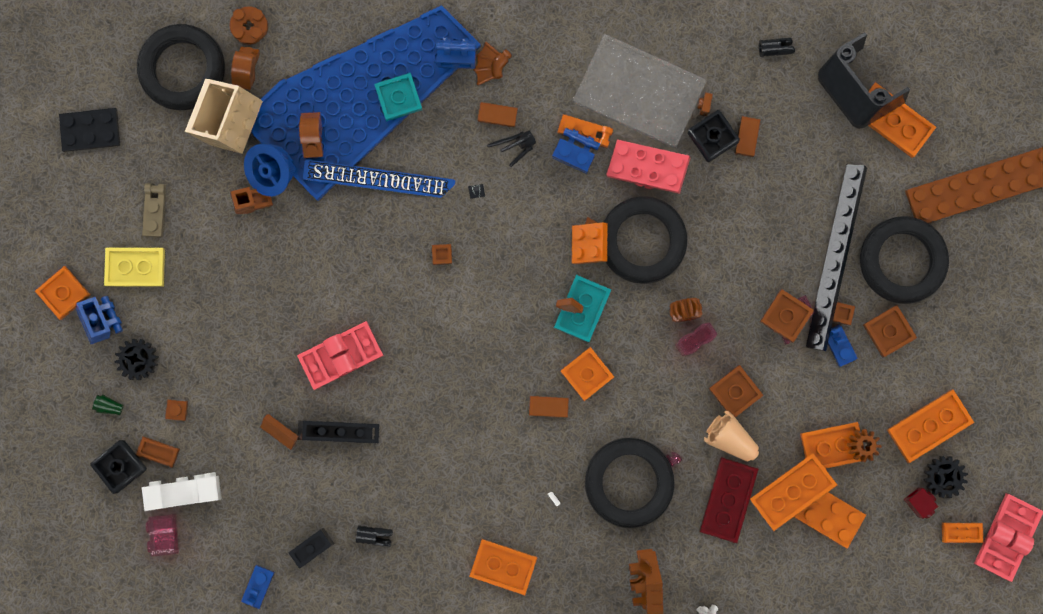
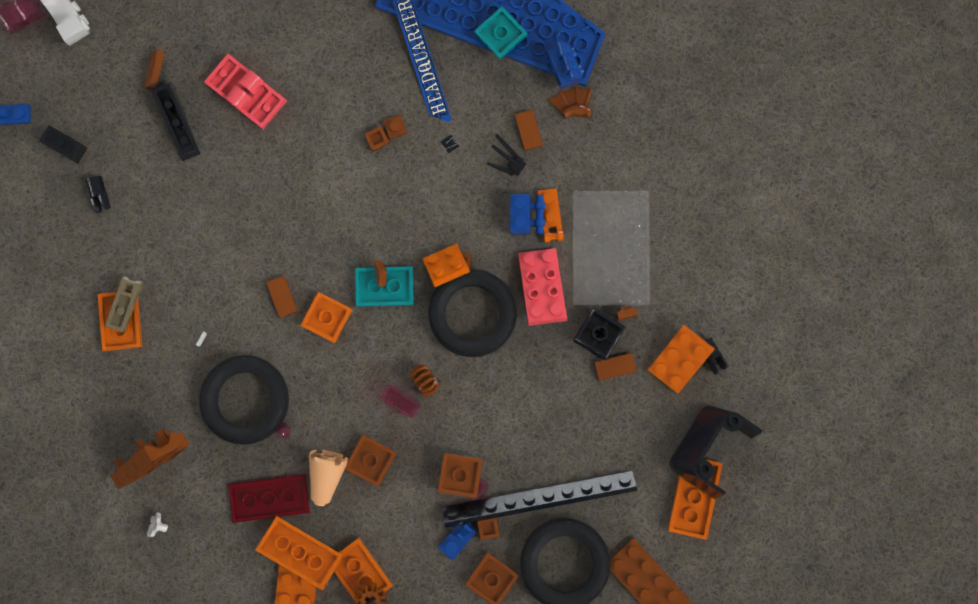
camera: 70 degrees right, 0 degrees up
(438, 233) = (395, 127): none -> dark orange plate
(492, 555) = (124, 304): none -> dark tan plate
(767, 74) = (681, 359): none -> orange plate

